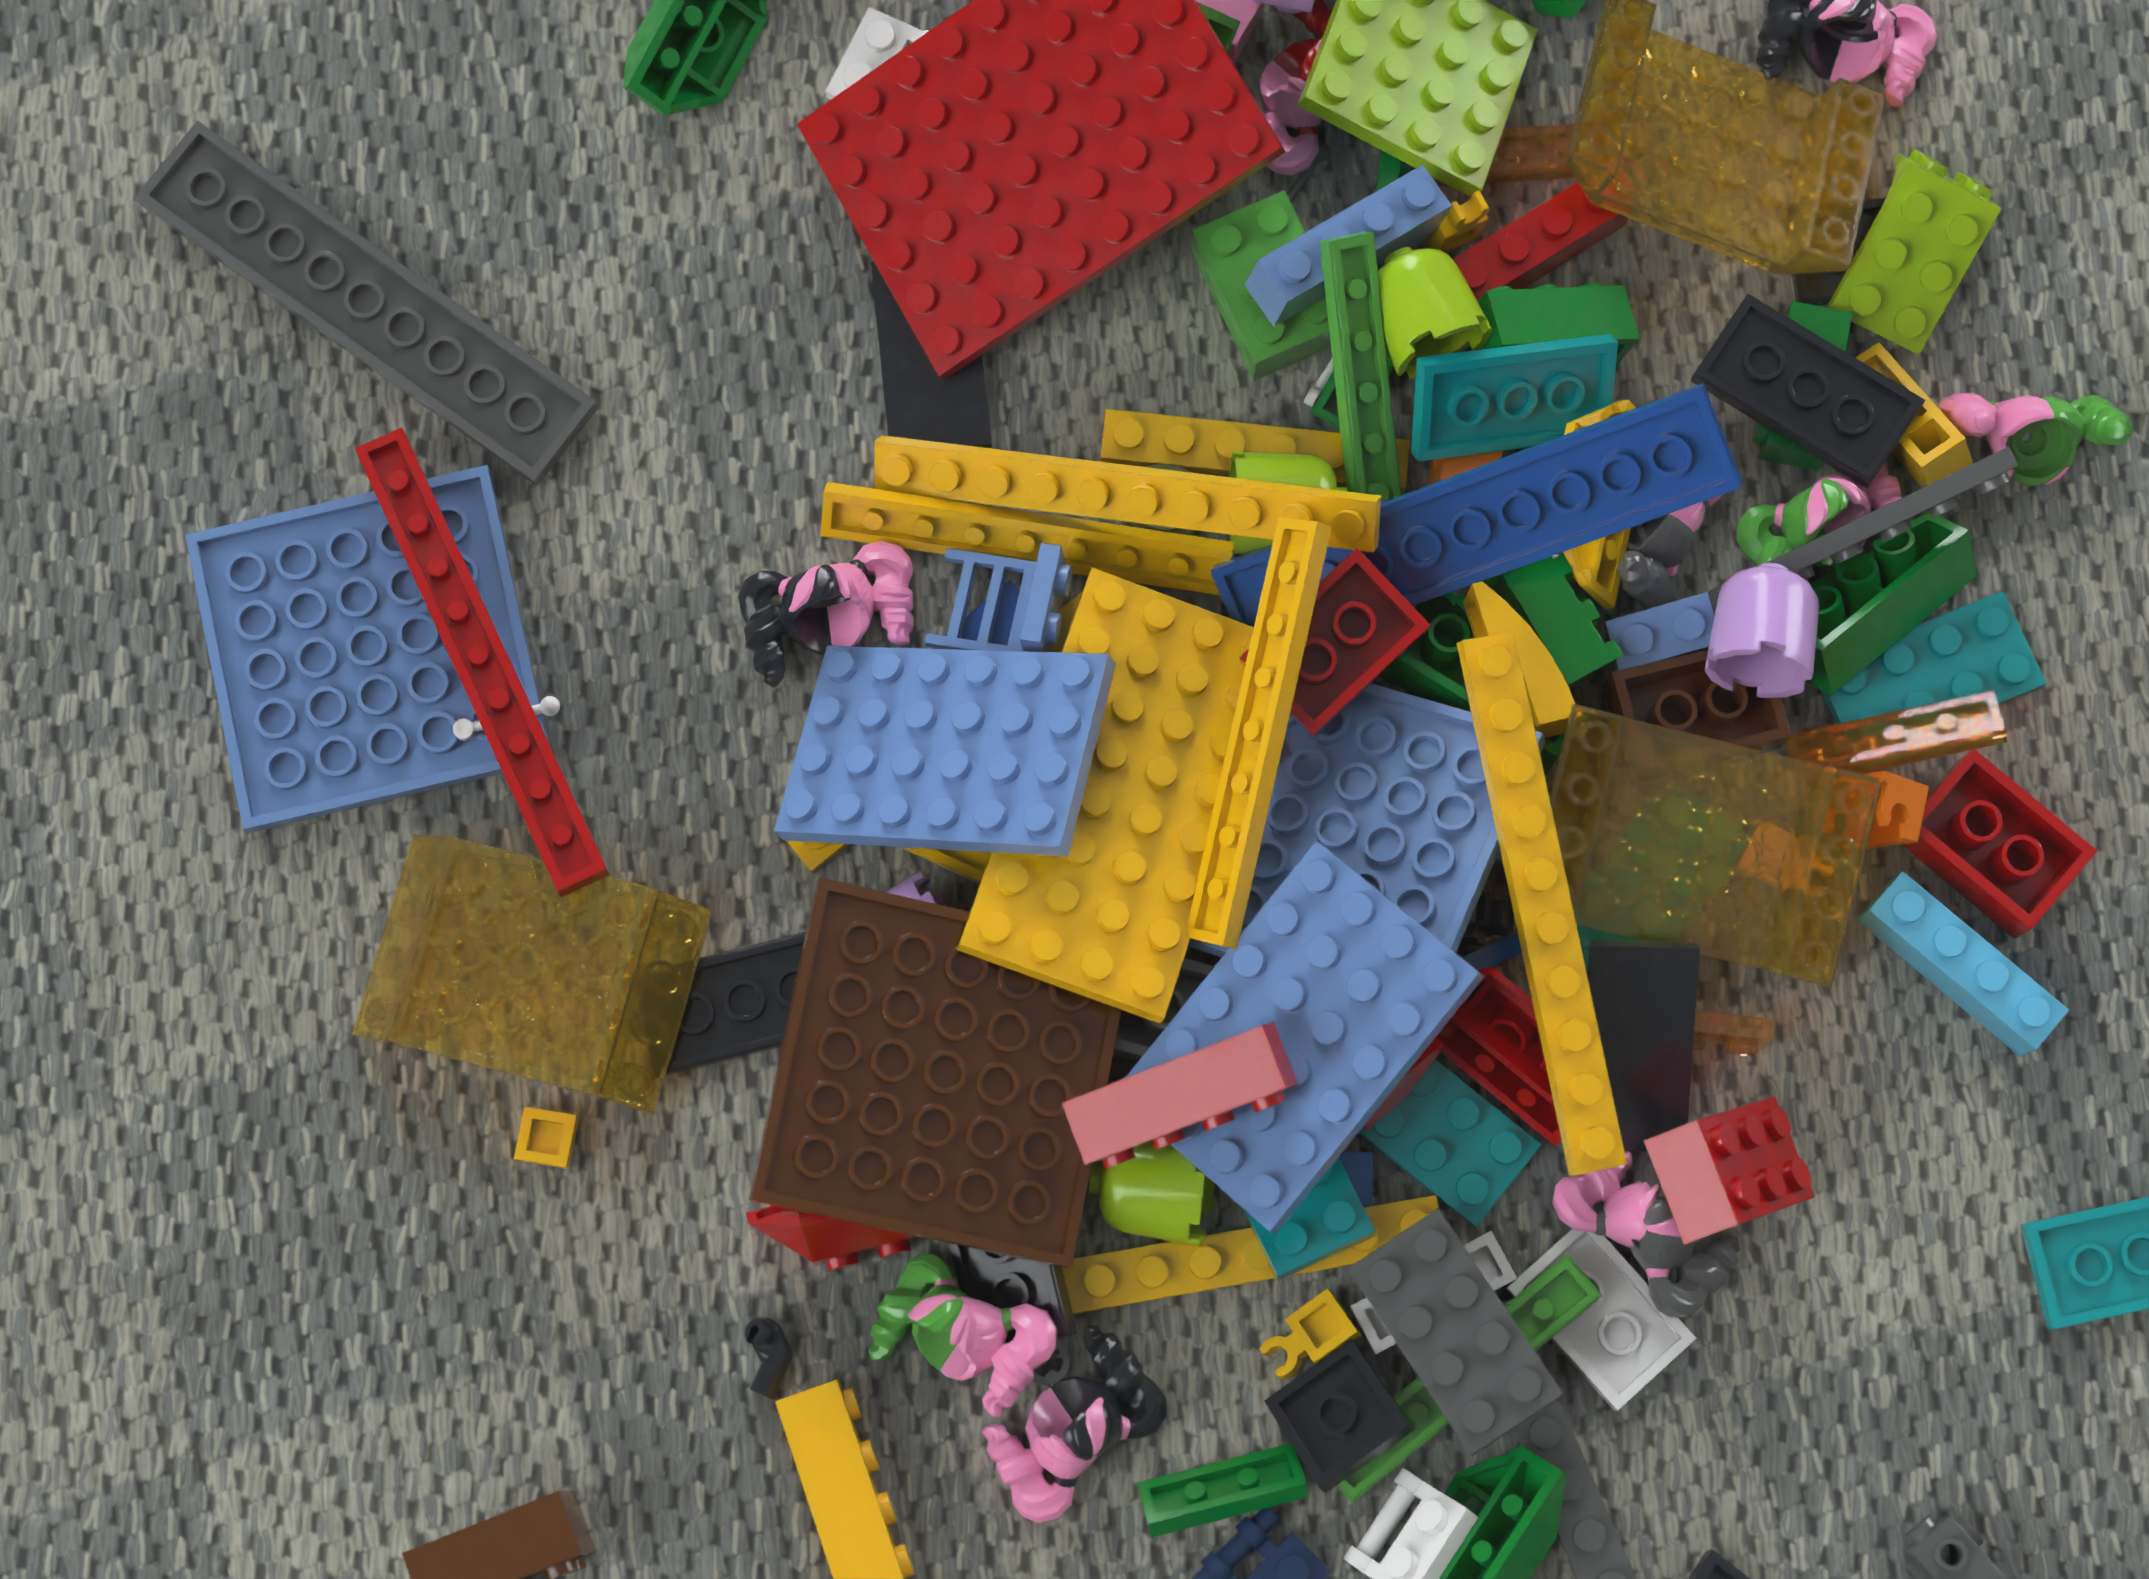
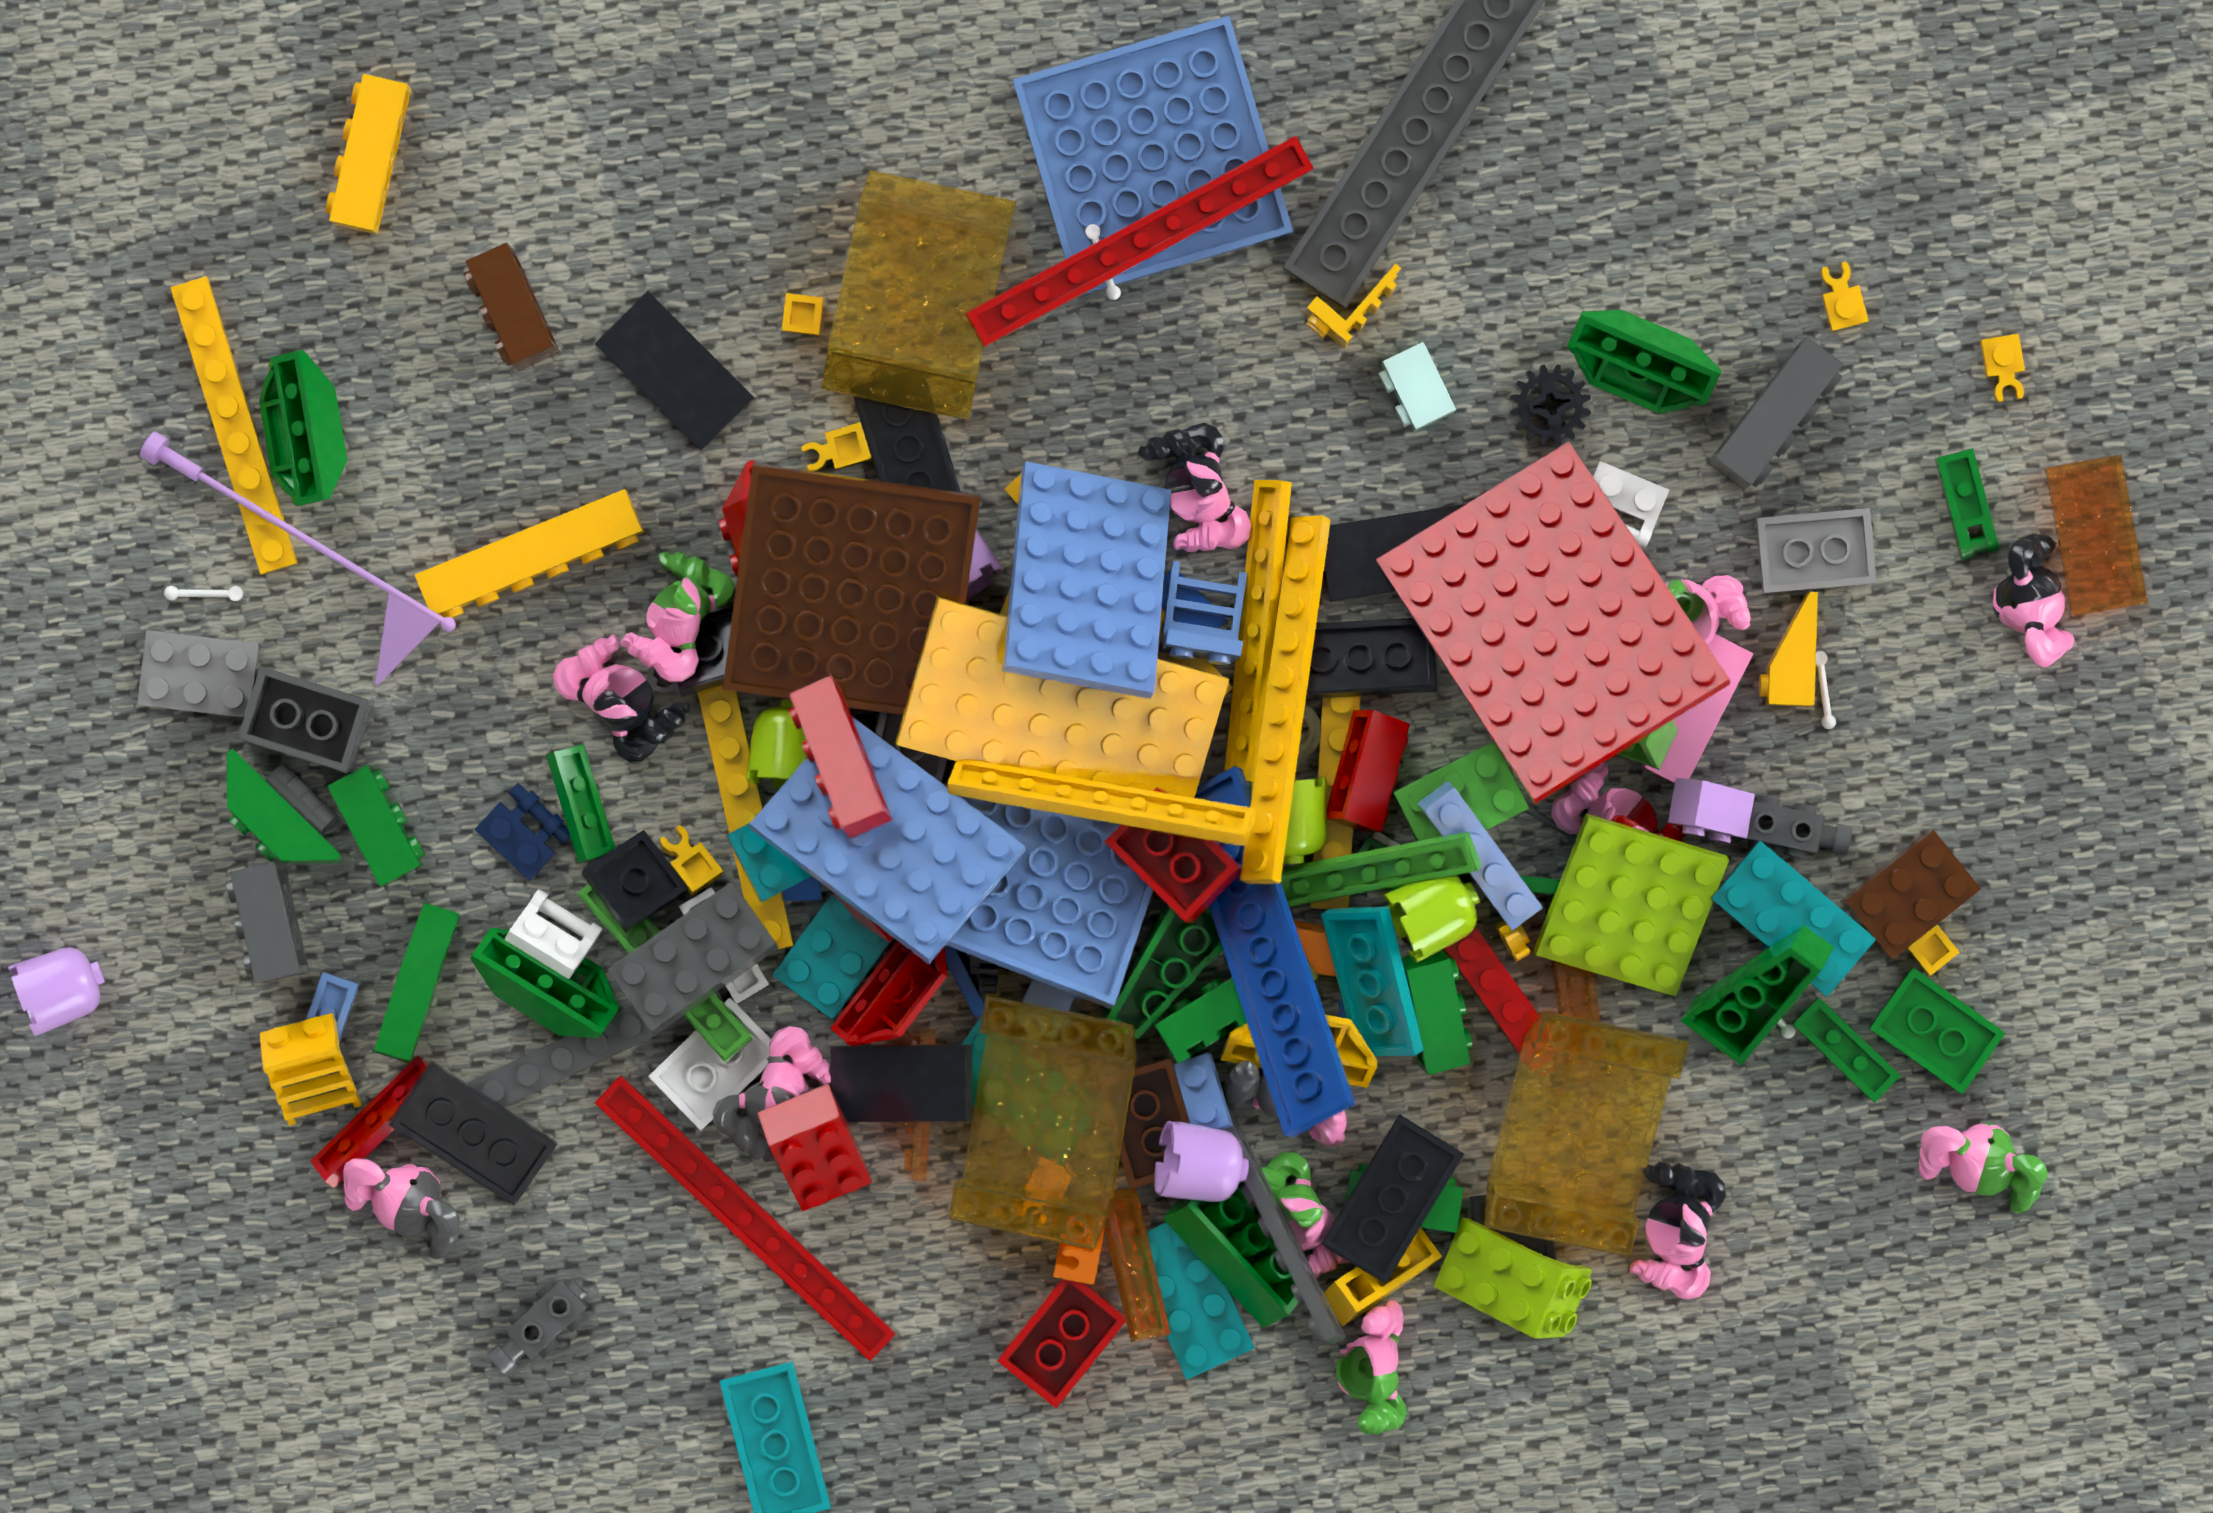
camera: 85 degrees right, 10 degrees up
(611, 1325) = (674, 370): none -> black tile
(619, 408) = (1325, 320): none -> yellow plate
(710, 315) = (1417, 387): none -> light aqua brick
(727, 148) = (1552, 422): none -> black gear
(736, 1089) = (844, 446): none -> yellow plate
(773, 1352) = (659, 485): black arm -> none
(1072, 384) = (1370, 659): none -> black tile
(1223, 399) = (1367, 770): none -> red brick
(1541, 903) = (991, 1006): yellow plate -> none
(1545, 685) = (1169, 989): yellow slope -> none
(1818, 1283) = (745, 1218): none -> red plate
(1962, 964) = (974, 1316): medium azure brick -> none

